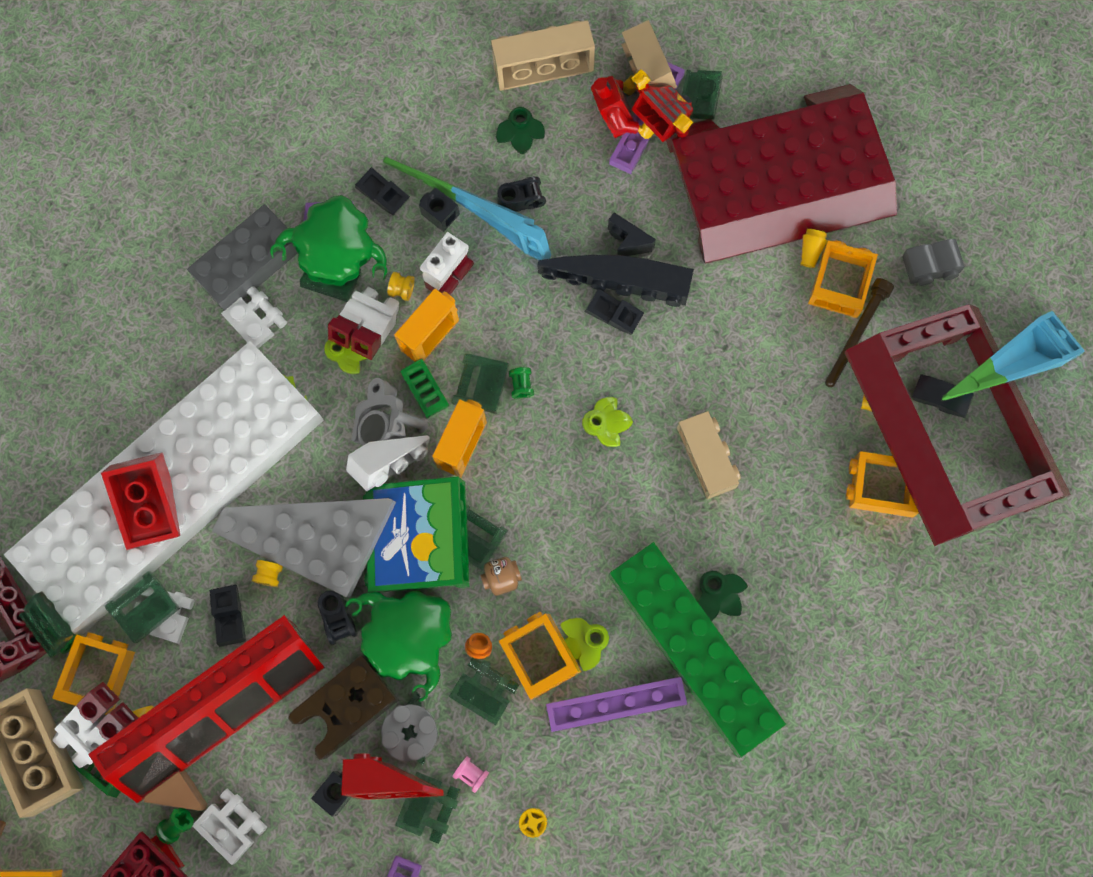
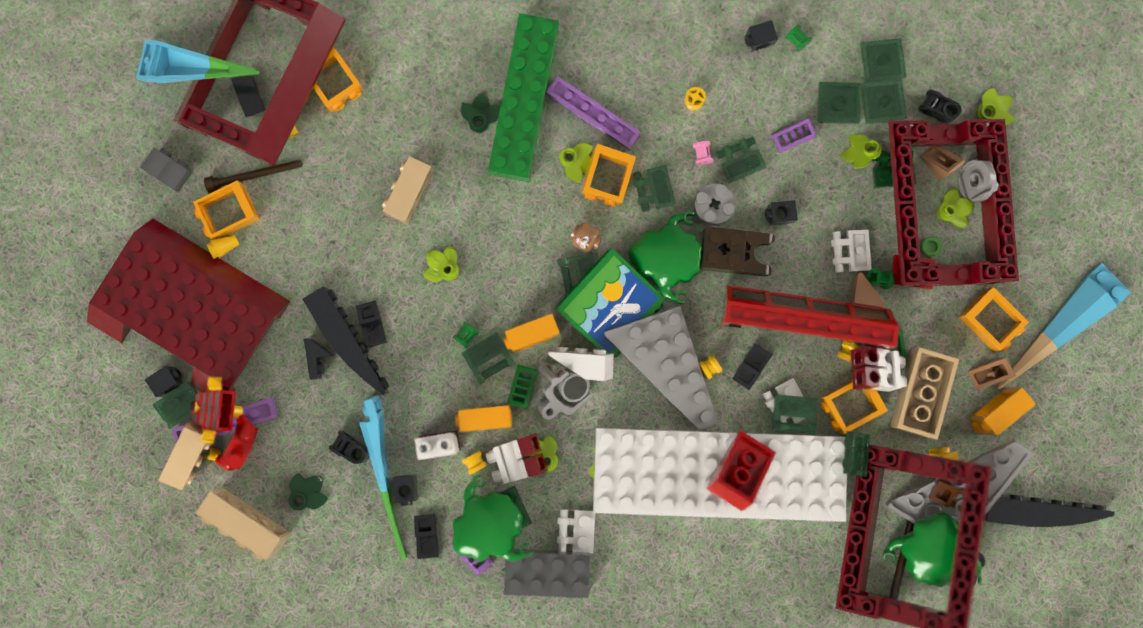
camera: 140 degrees left, 10 degrees up
(336, 619) = (695, 301): black piece -> none
(372, 779) = (750, 188): red slope -> none
(478, 646) = (634, 213): orange plate -> none
(733, 99) = (164, 381): none -> black brick

